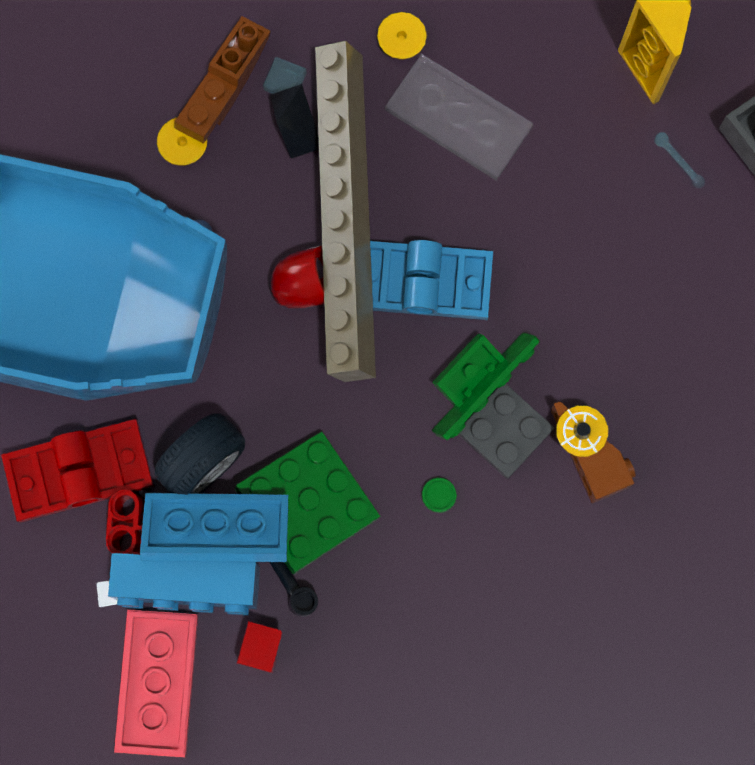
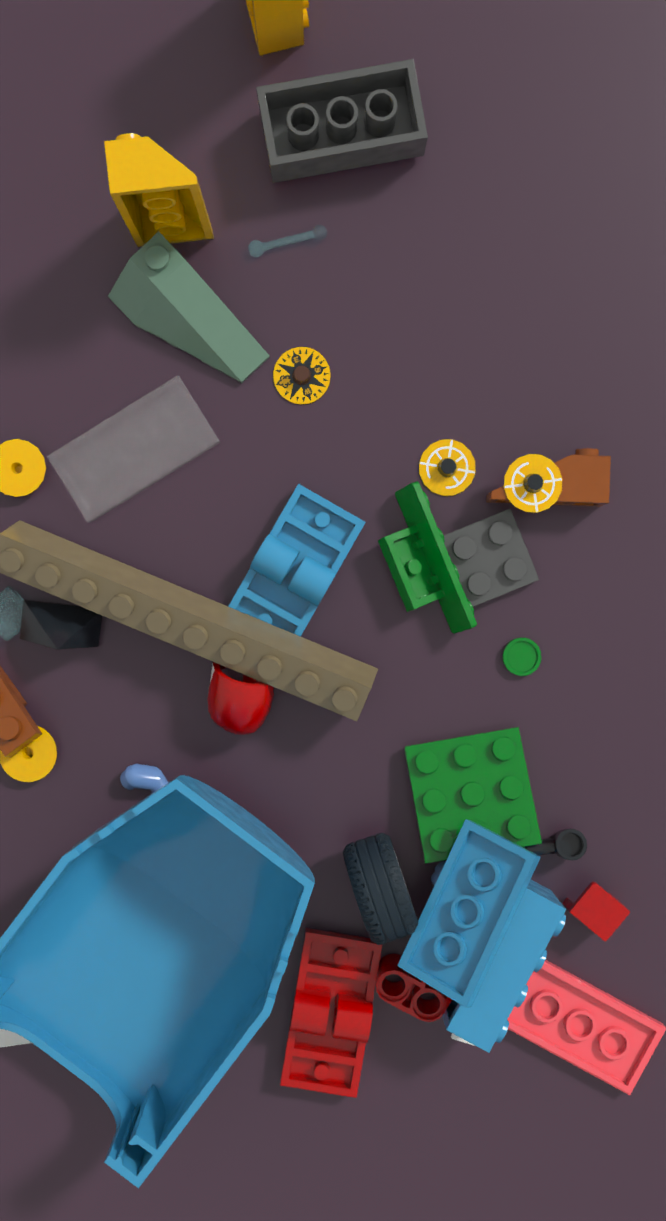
camera: 60 degrees left, 10 degrees up
(563, 366) = (447, 467): none -> yellow piece
(580, 219) = (301, 375): none -> piece
(584, 101) = (175, 304): none -> sand green wedge

